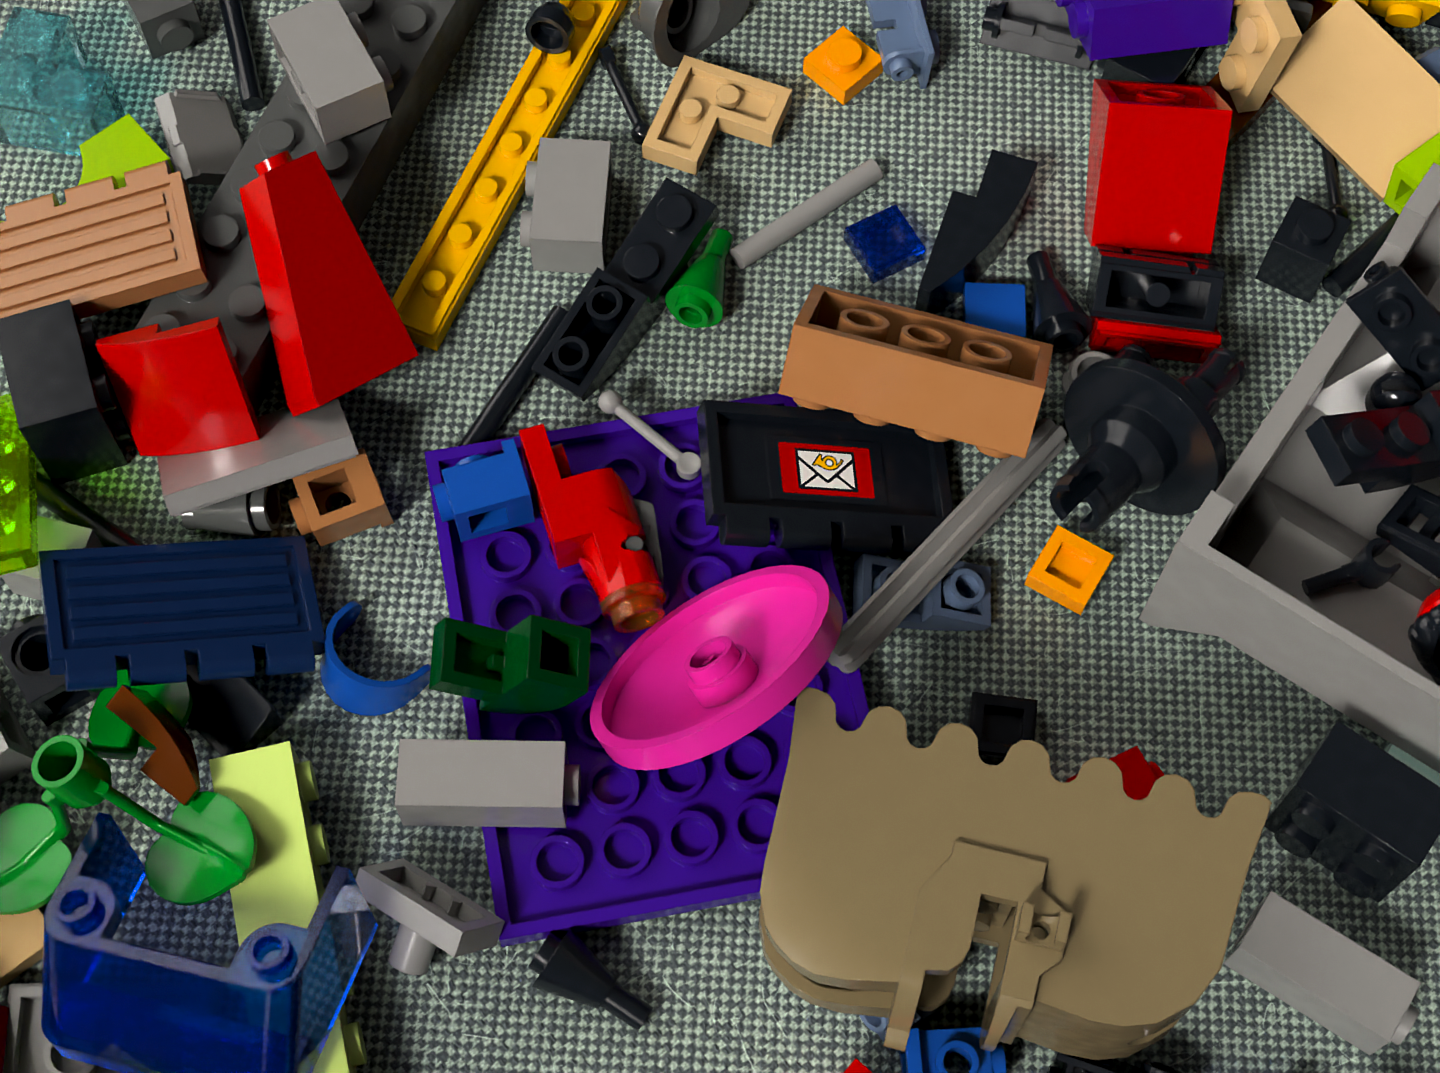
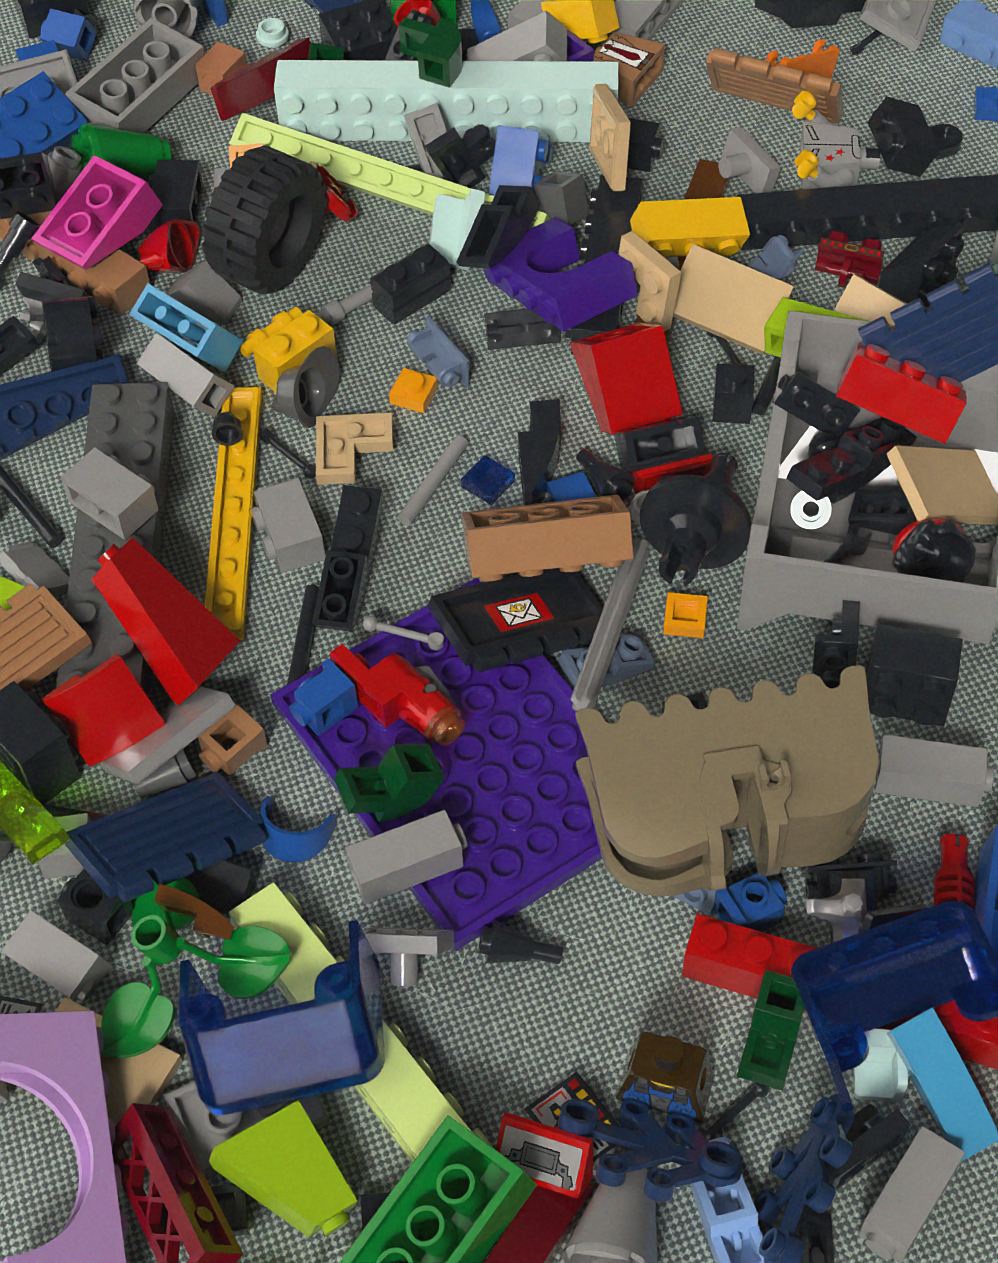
camera: 20 degrees left, 10 degrees down
(699, 293) = (391, 546): green cone -> none
(716, 667) = (516, 729): dark pink dish -> none
(1256, 740) = (840, 649): none -> black bracket
(1315, 503) = (810, 521): none -> light aqua plate

